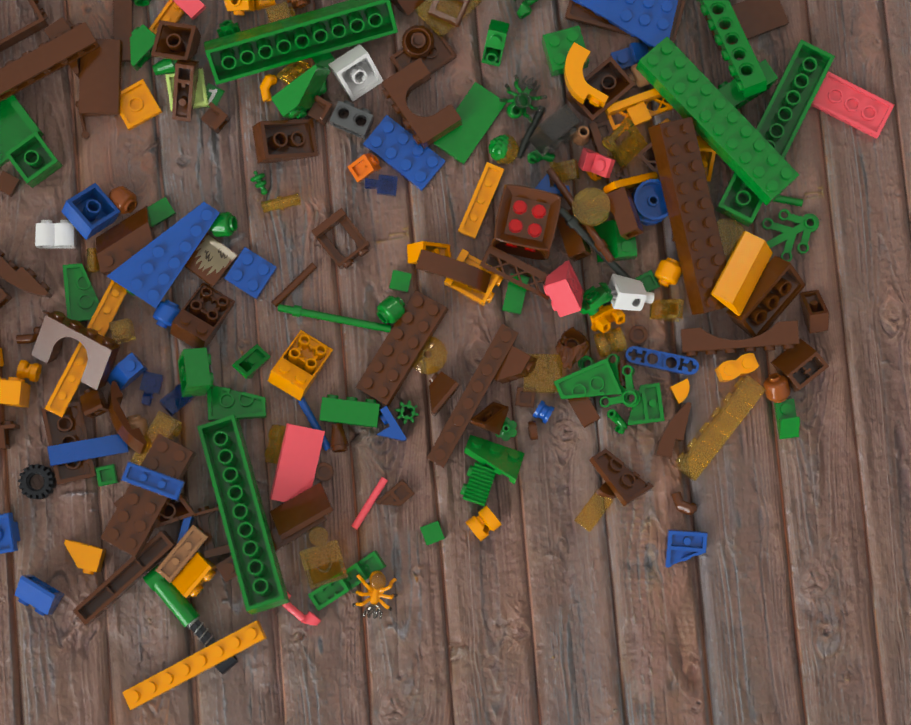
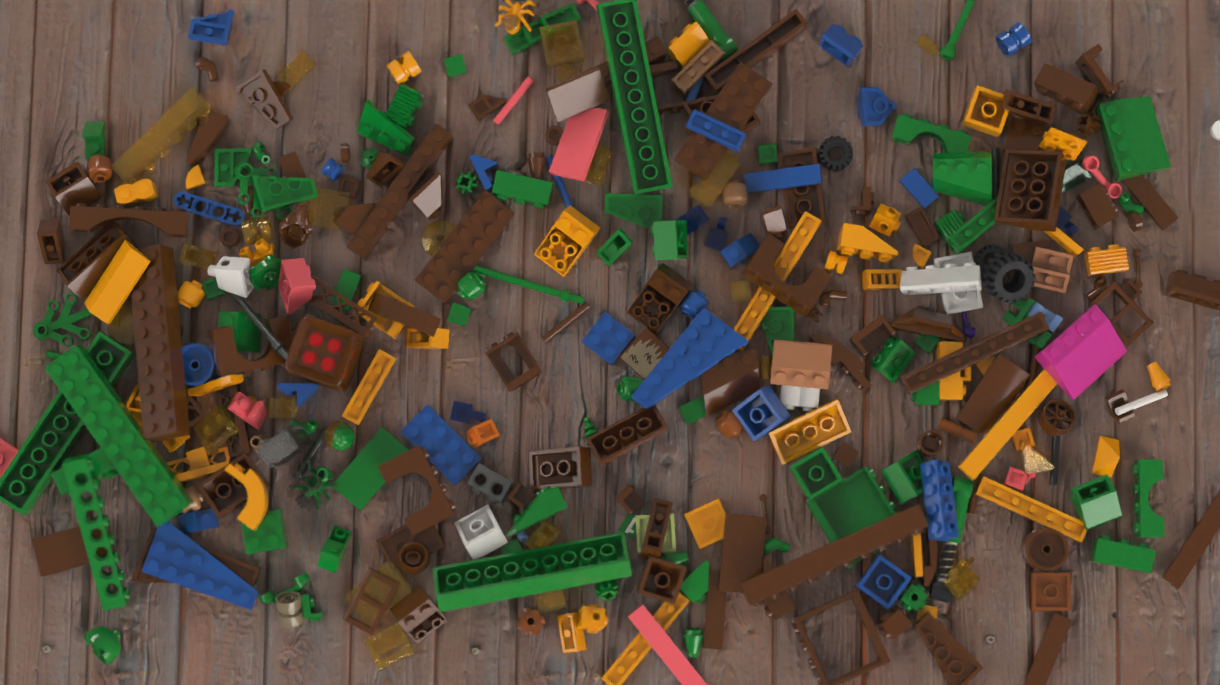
camera: 170 degrees left, 0 degrees up
(42, 201) = (809, 431): none -> light orange slope
(54, 261) = (801, 364): none -> nougat slope
(70, 91) = (773, 544): none -> green arm
(86, 556) = (793, 77): light orange slope -> none
(132, 437) = (735, 180): reddish brown slope -> none
(220, 174) = (627, 434): none -> reddish brown slope
(265, 86) = (575, 528): light orange arm -> none
(281, 202) = (570, 405): clear yellow pin -> none
(591, 206) = (257, 359): clear yellow tile -> none
(600, 244) = (252, 321): reddish brown bar -> none

